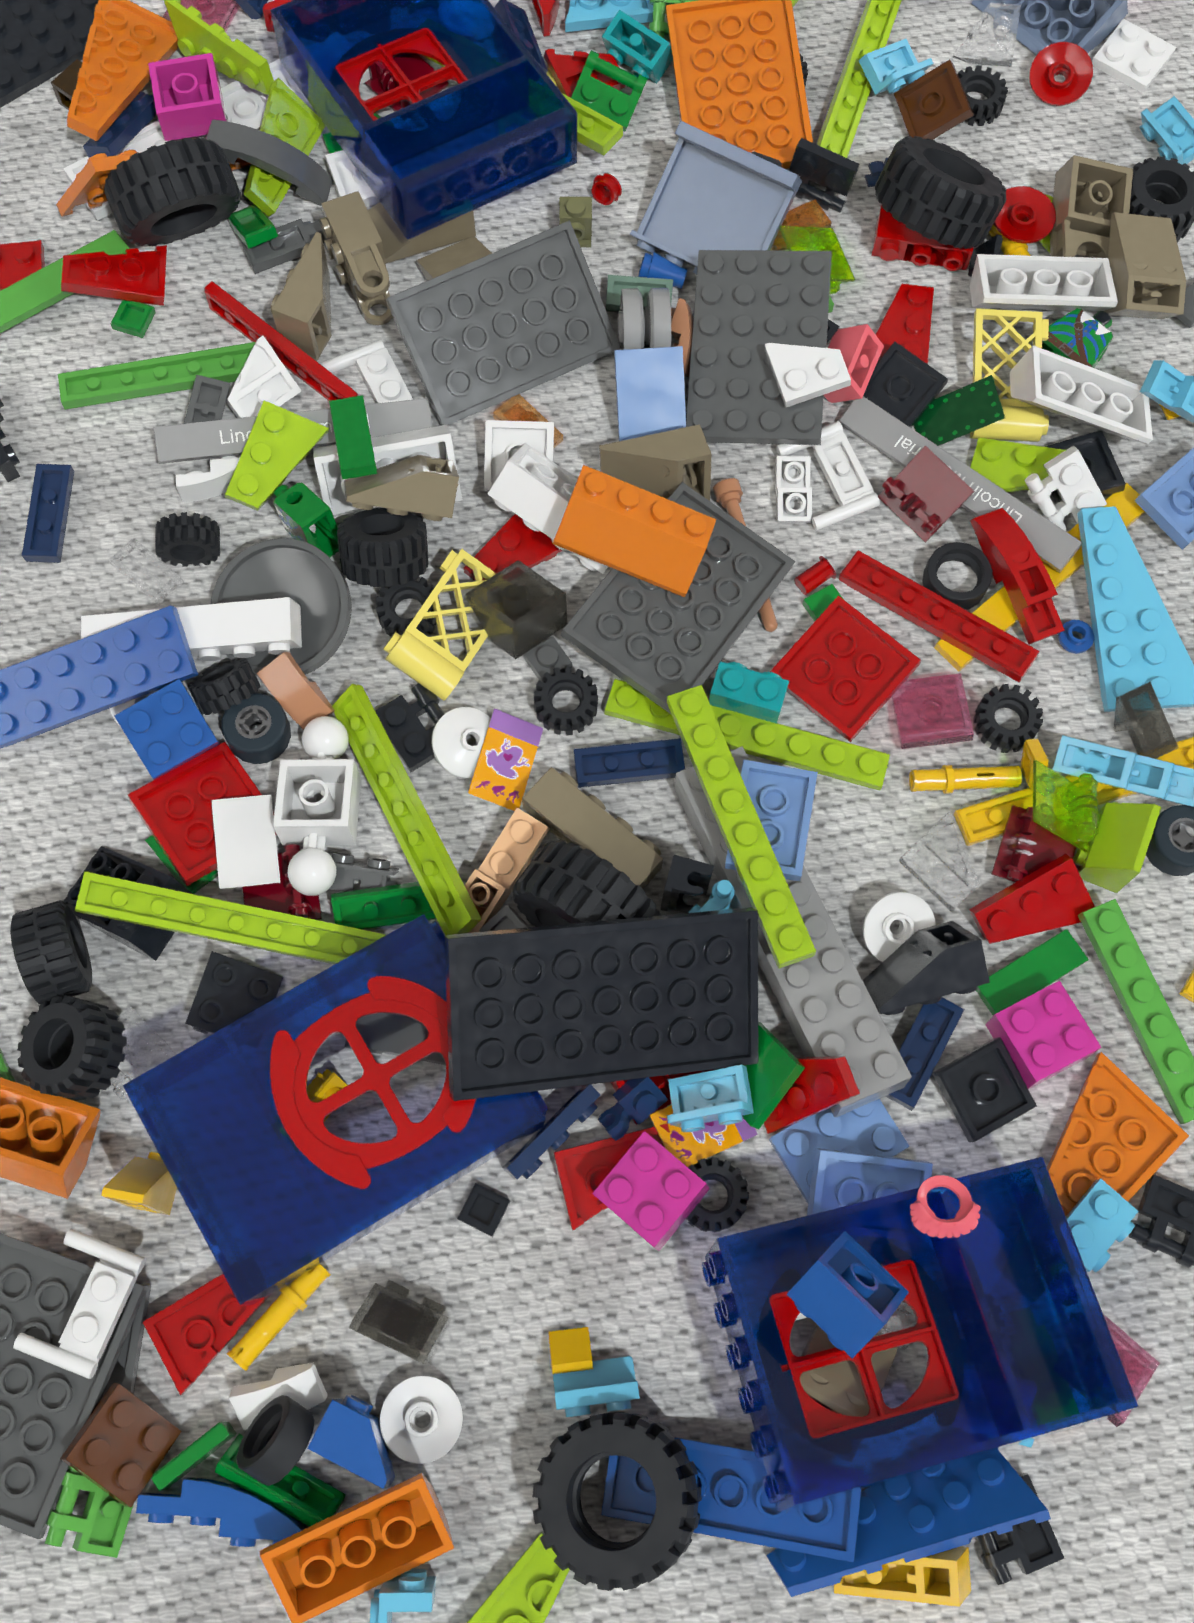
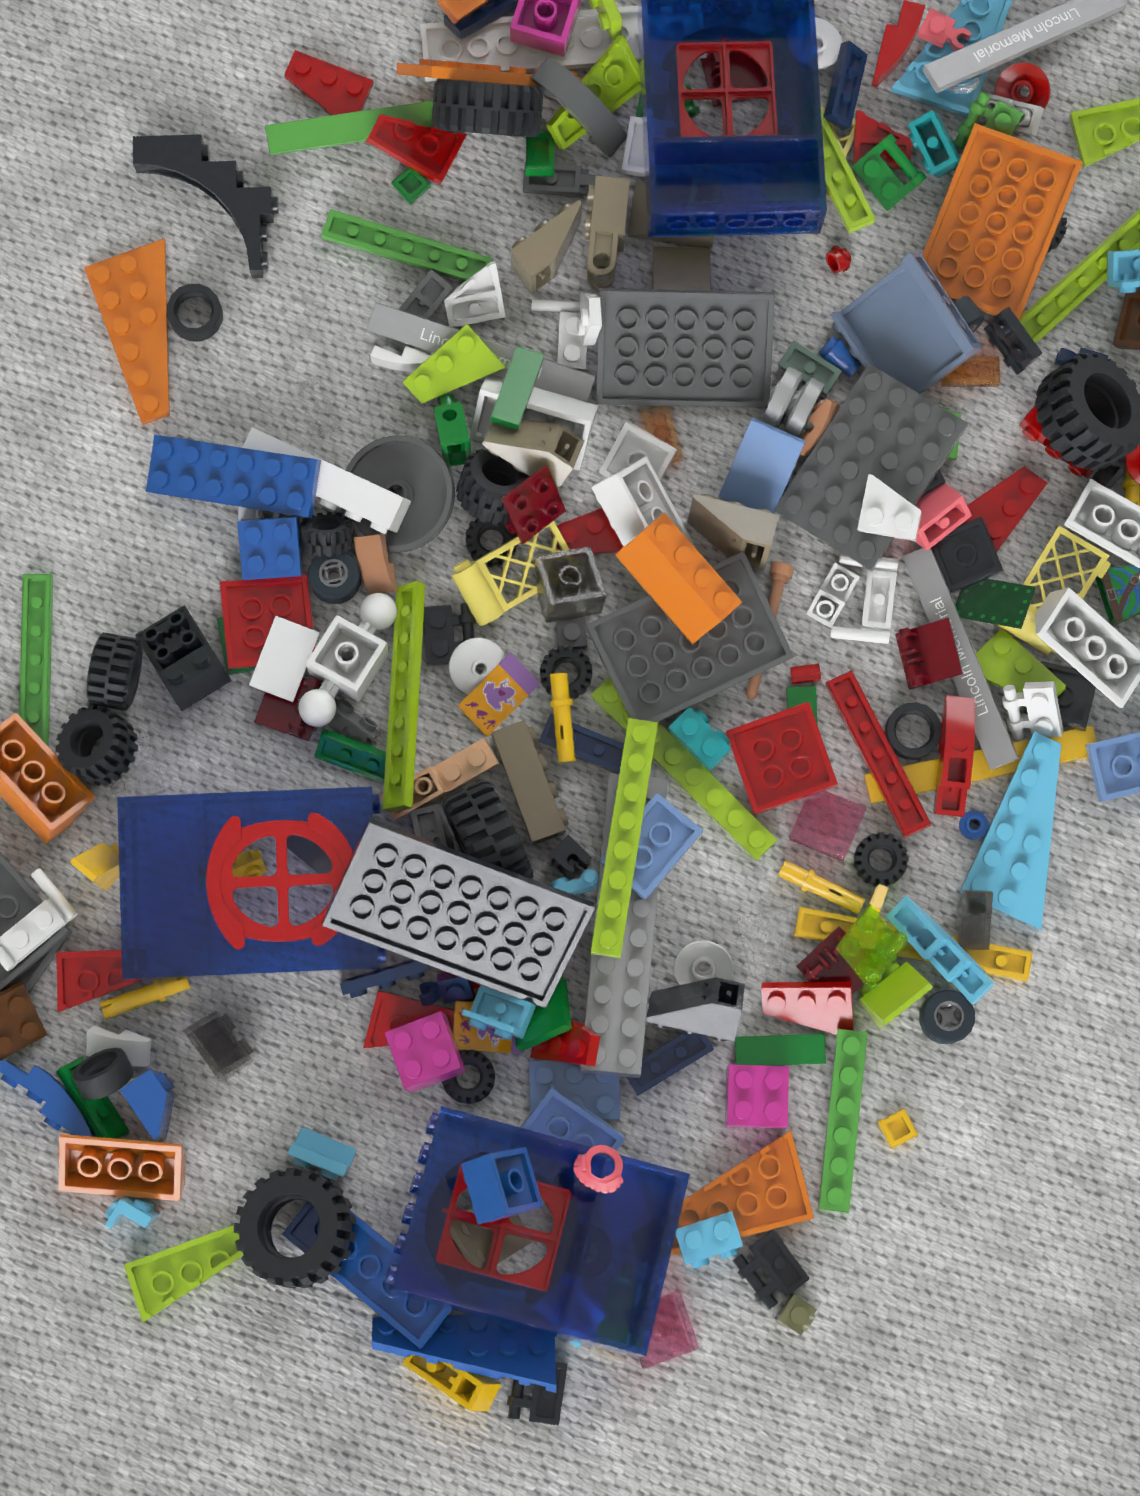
camera: 30 degrees right, 10 degrees up
(48, 513) = (269, 322): dark blue plate -> none
(187, 539) = (357, 403): black tyre -> none
(193, 1455) = (48, 1054): green tile -> none
(219, 919) = (243, 715): lime plate -> none
(229, 992) = (220, 765): black hinge -> none
(290, 355) = (507, 273): red tile -> none
(391, 337) = (590, 322): none -> white wing
(398, 1419) = (185, 1112): white dish -> none
(435, 538) = (533, 505): none -> dark red hinge
(483, 1210) = (312, 1002): black tile -> none
(570, 1350) = (318, 1123): yellow tile -> none
(579, 213) = (794, 279): olive brick -> none
(582, 731) = (562, 717): none -> yellow pin
(820, 240) = (972, 404): clear neon green hinge -> none
(984, 1089) = (694, 1110): black plate -> none

